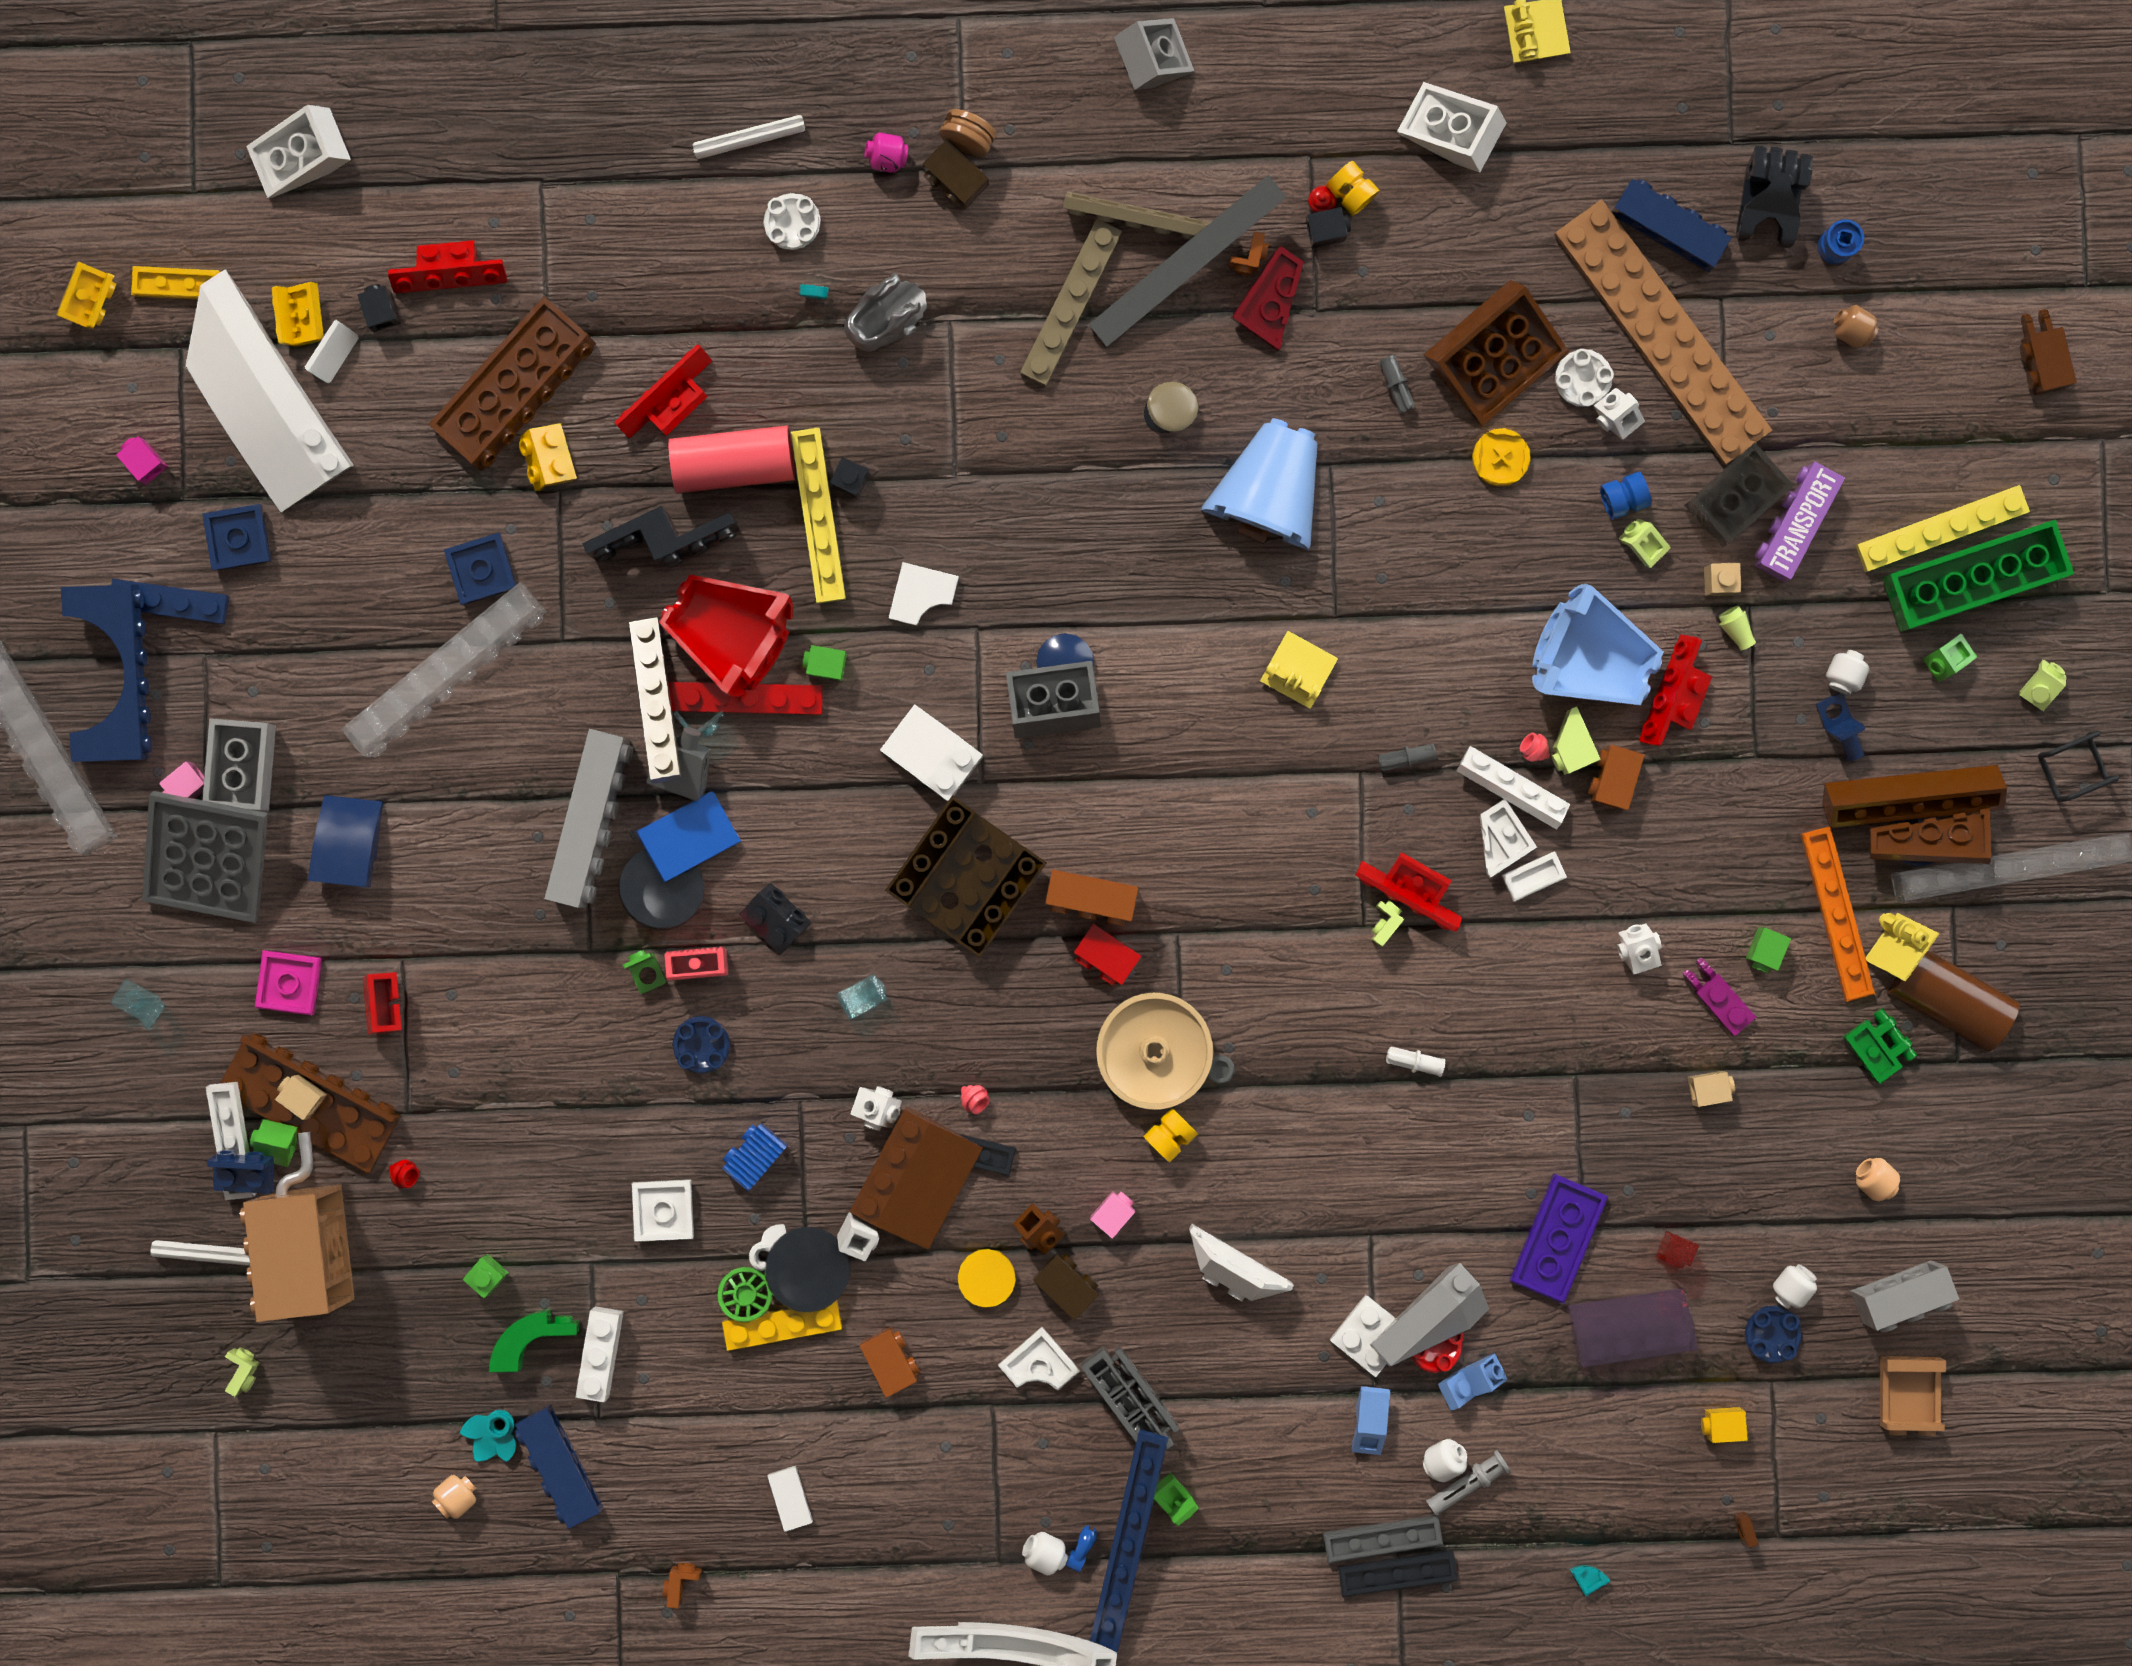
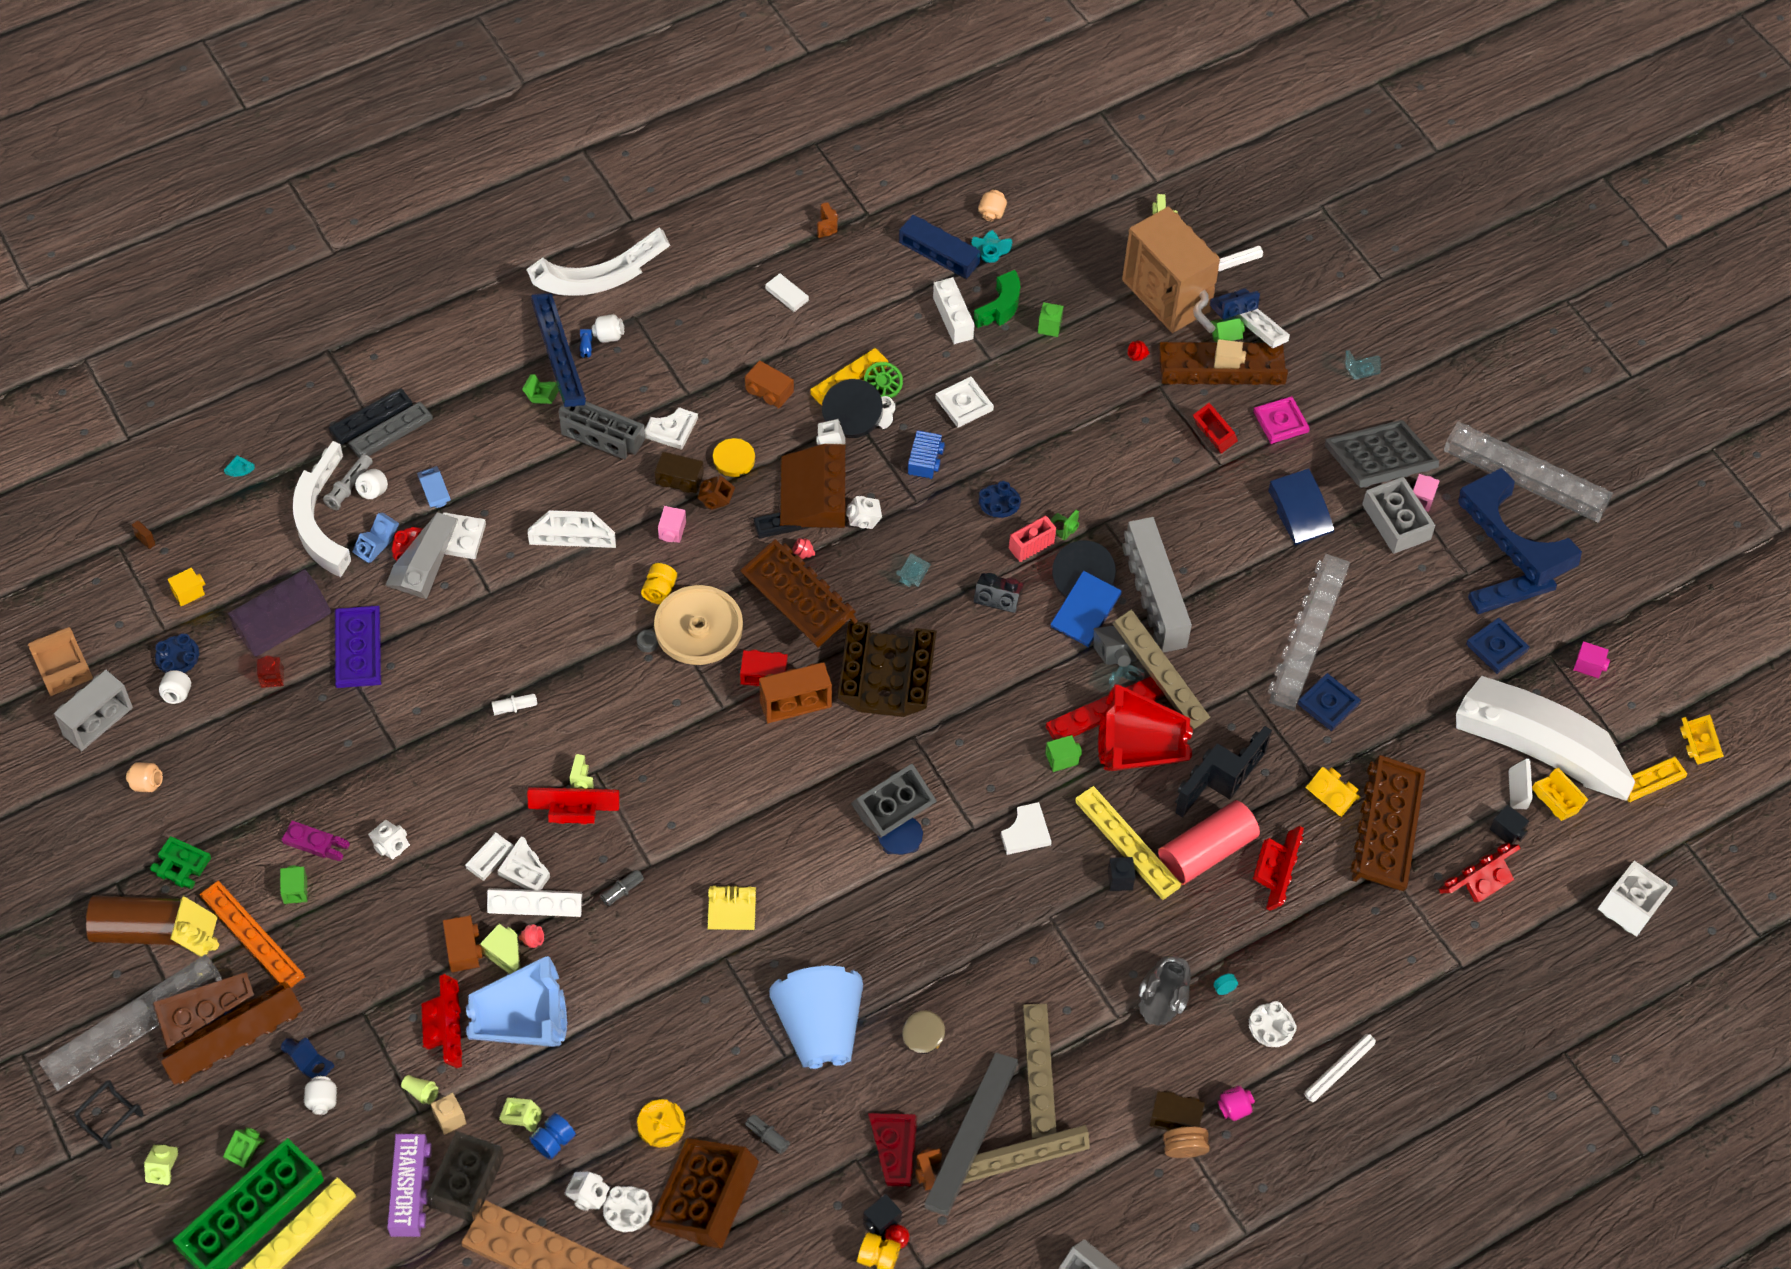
camera: 150 degrees right, 30 degrees down
(931, 753) = (955, 733): white slope -> none
(1017, 1028) = (798, 592): none -> reddish brown bracket
(1543, 1458) = (321, 549): none -> white arch
(1711, 1088) = (293, 779): tan brick -> none

